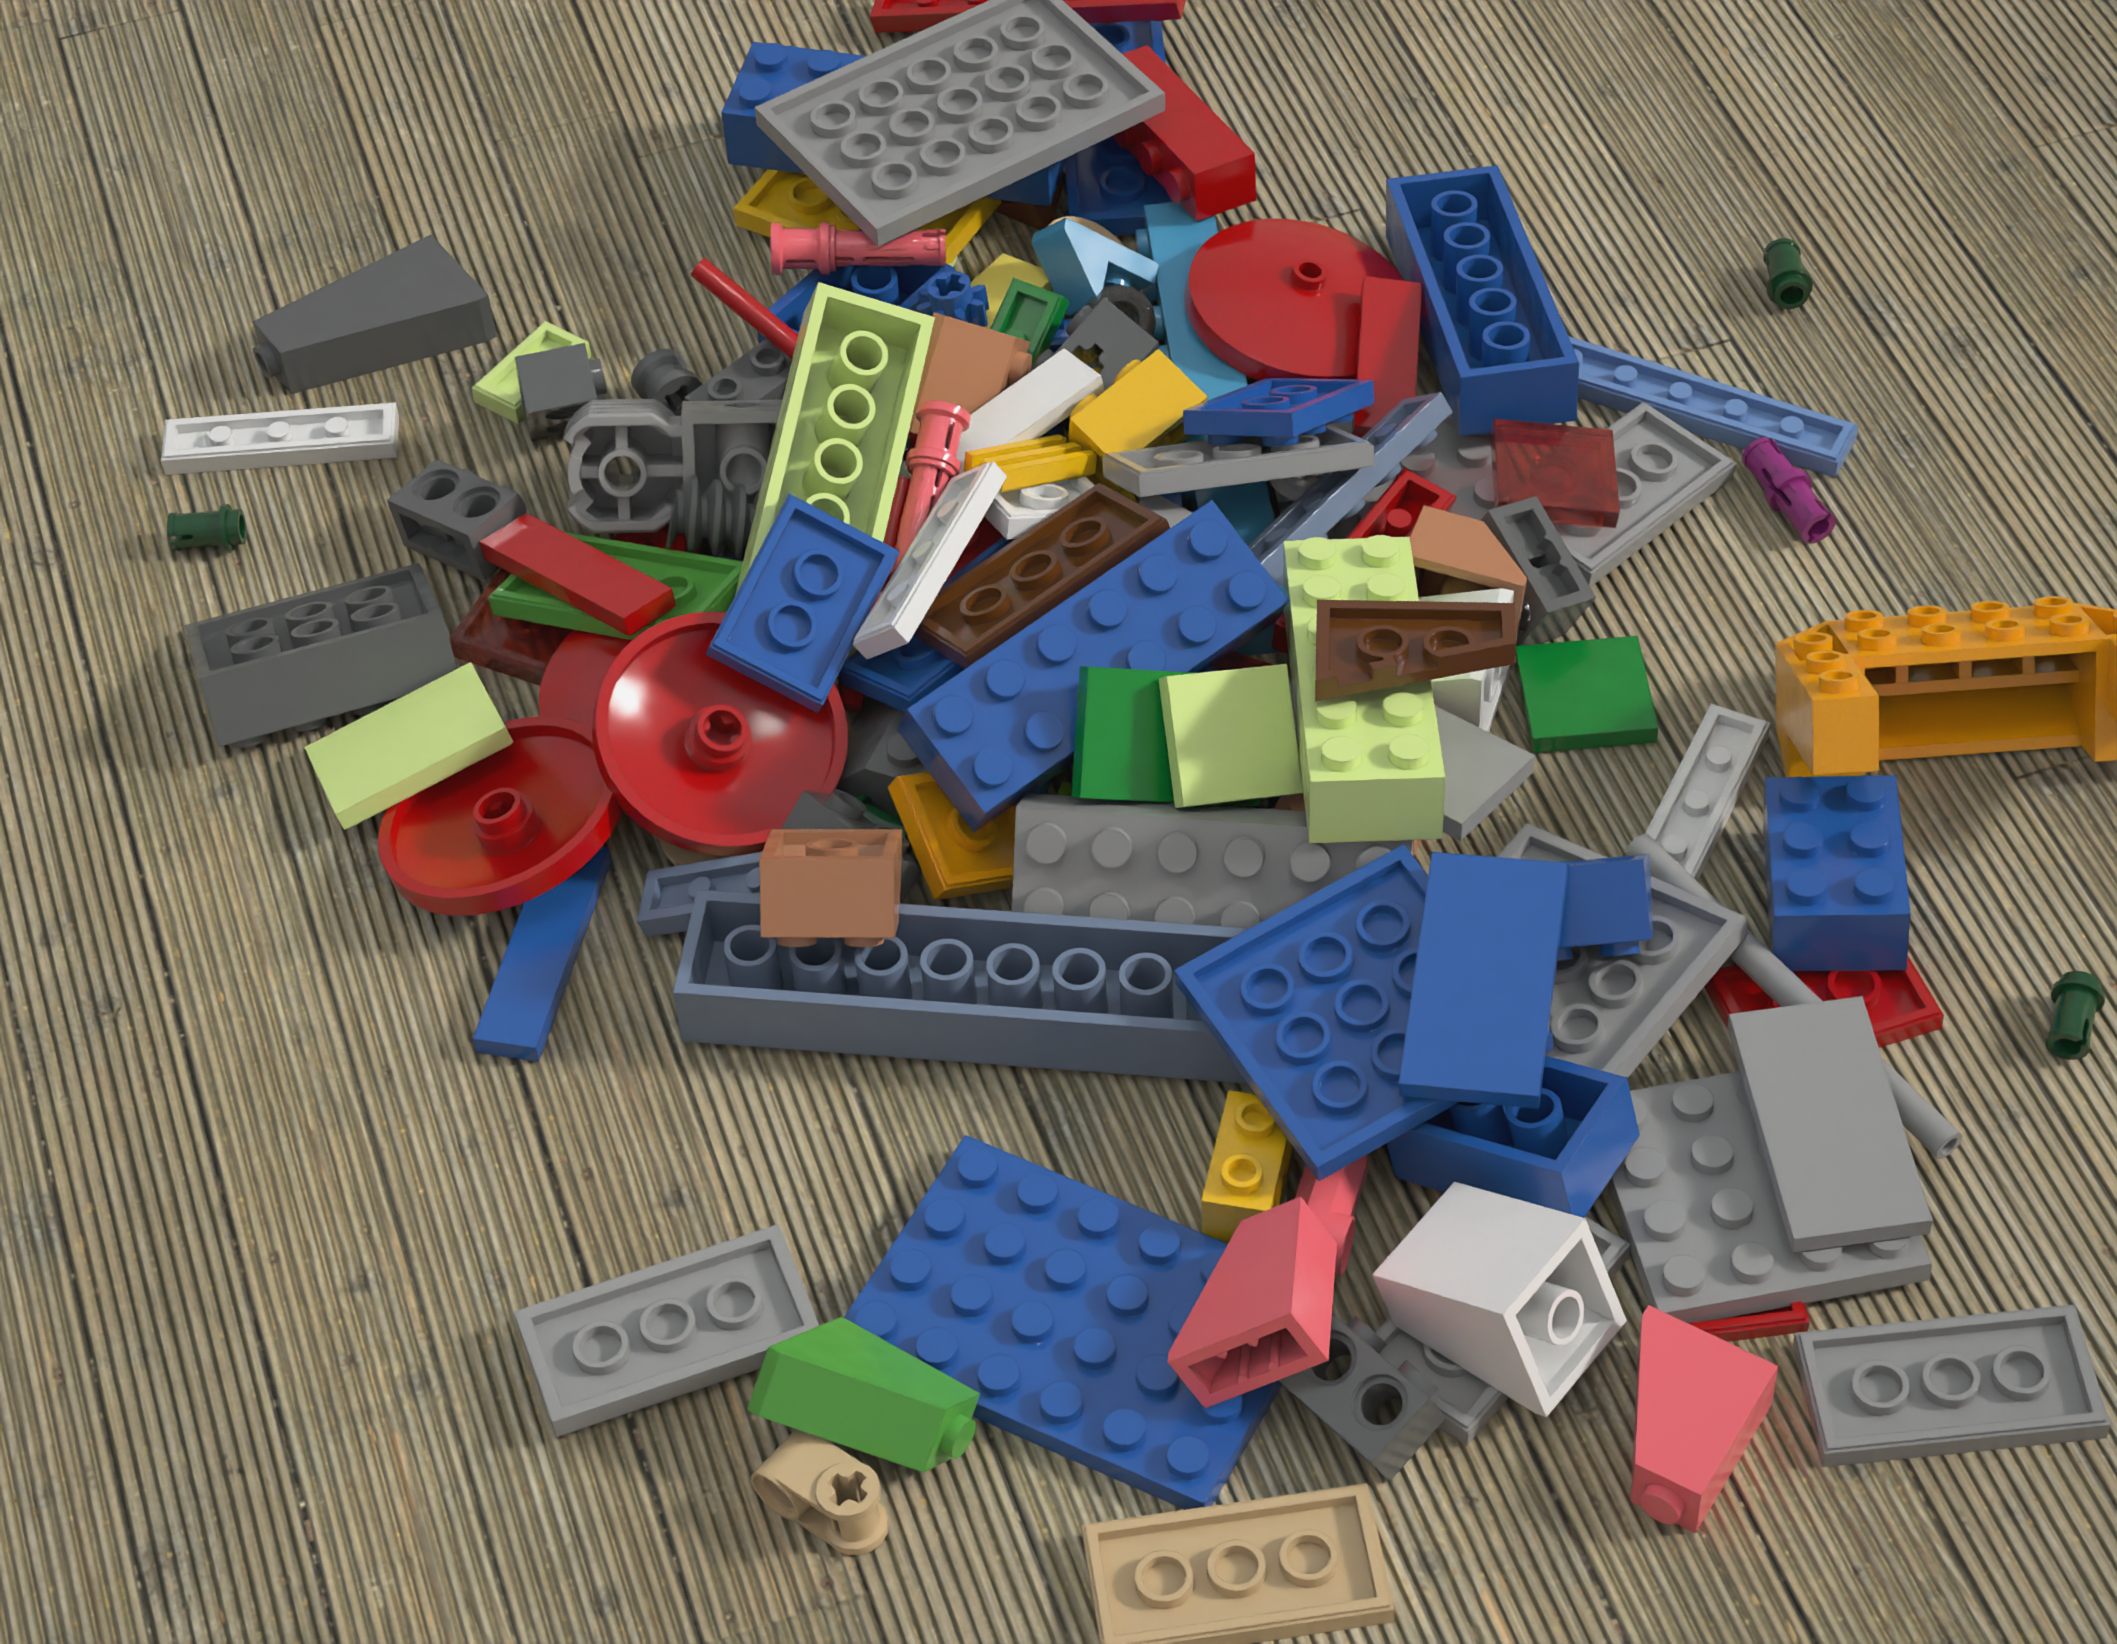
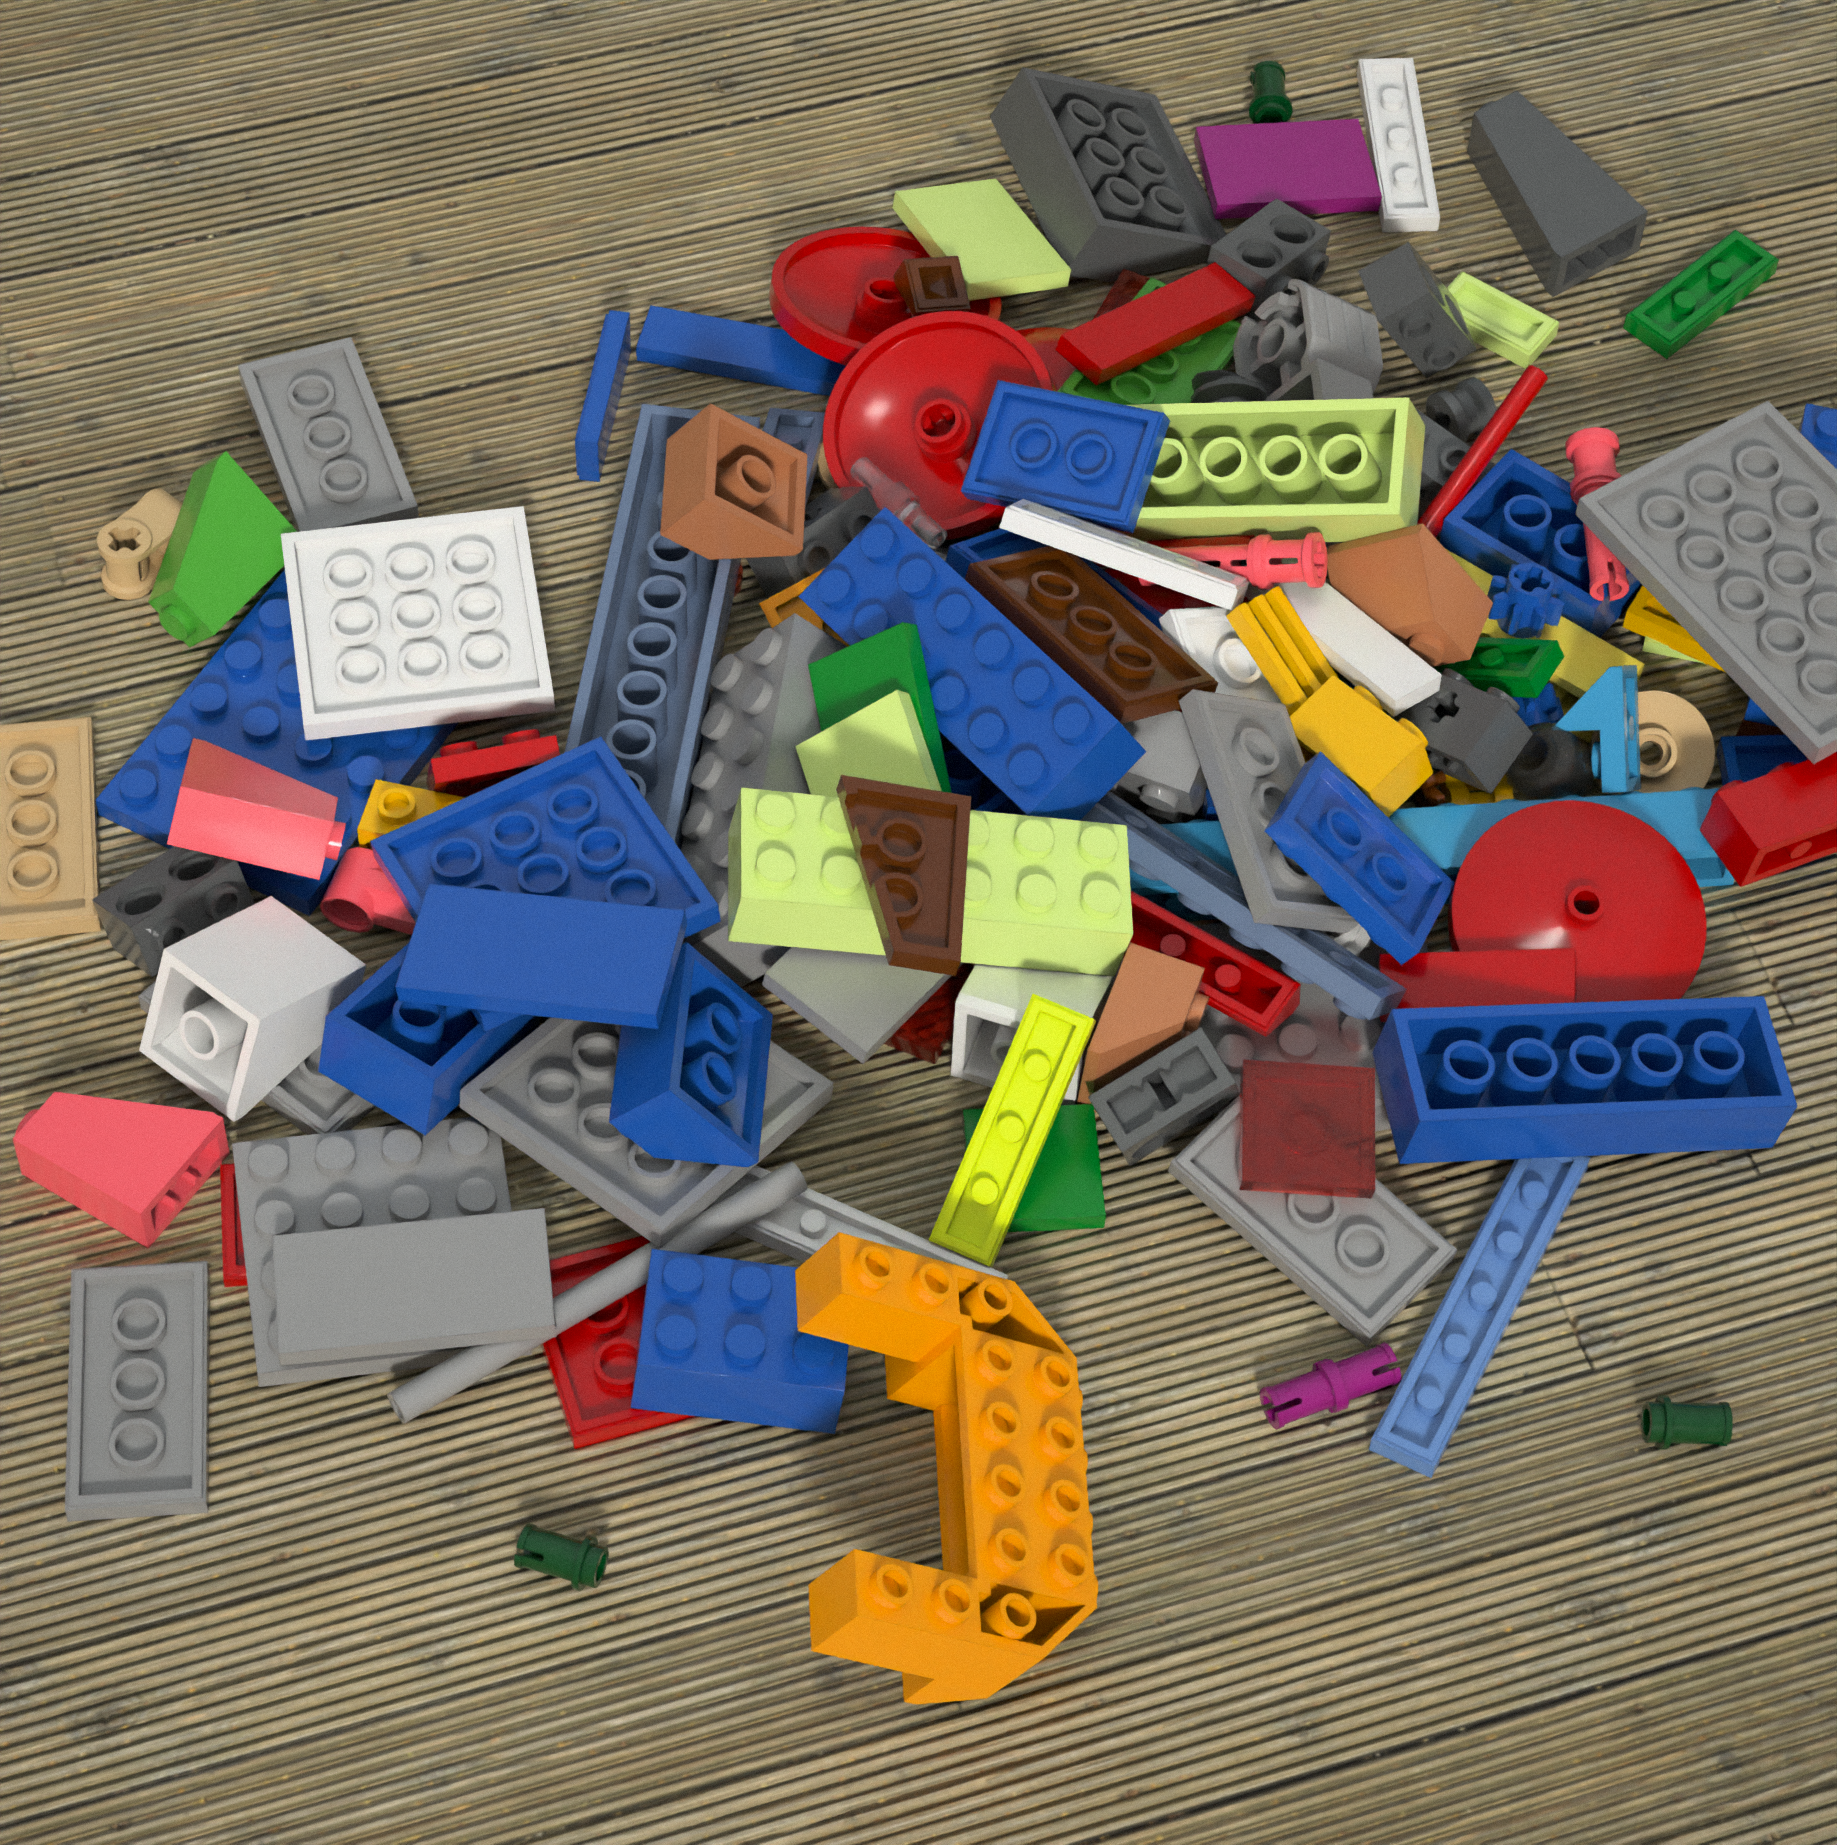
camera: 85 degrees right, 5 degrees up
(313, 517) = (1301, 163): none -> magenta tile
(503, 761) = (932, 285): none -> reddish brown slope
(508, 230) = (1700, 294): none -> green tile
(613, 1067) = (603, 396): none -> blue tile
(820, 769) = (899, 501): none -> clear bar
(969, 1194) = (416, 623): none -> white plate
(1172, 1108) = (466, 770): none -> red plate
(1598, 667) = (1012, 1130): none -> neon yellow tile

